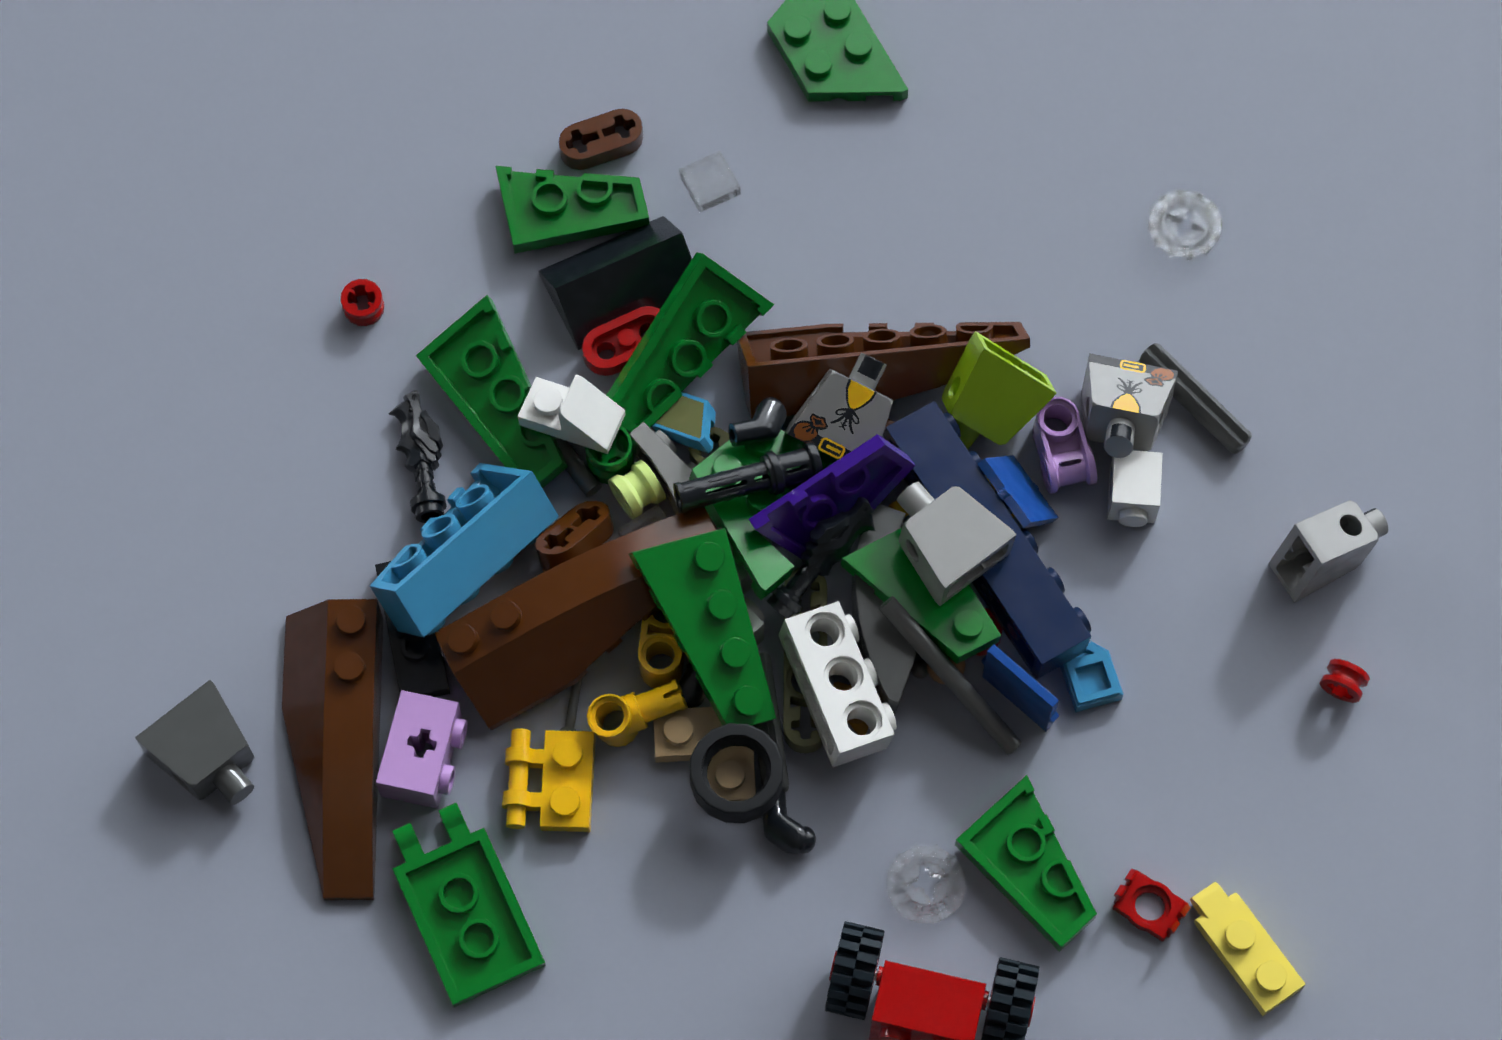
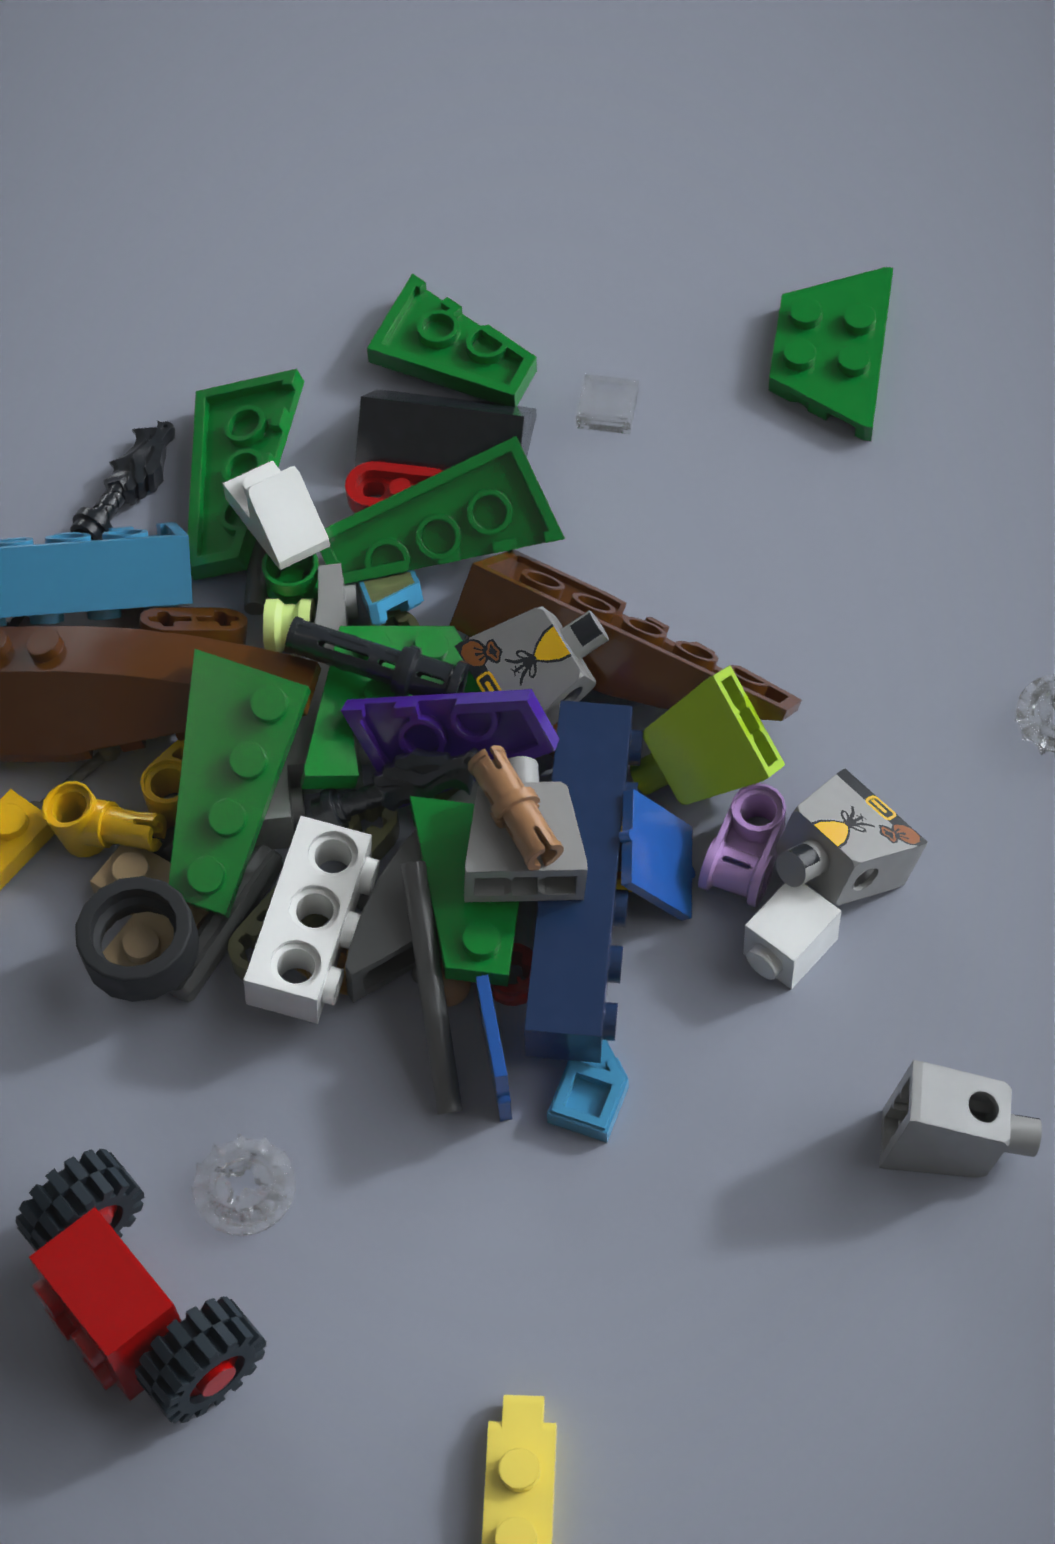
camera: 40 degrees right, 10 degrees down
(350, 294) = (192, 311): red bush -> none
(601, 139) = (535, 310): reddish brown beam -> none
(764, 425) = (441, 628): black arm -> none
(785, 831) = (149, 1033): black arm -> none
(946, 524) = (515, 807): none -> medium nougat pin
(1025, 862) = (360, 1237): green wing -> none
(1139, 884) = (457, 1342): red piece -> none
(1200, 402) = (936, 895): dark grey axle -> none
(1344, 680) = (862, 1280): red bush -> none

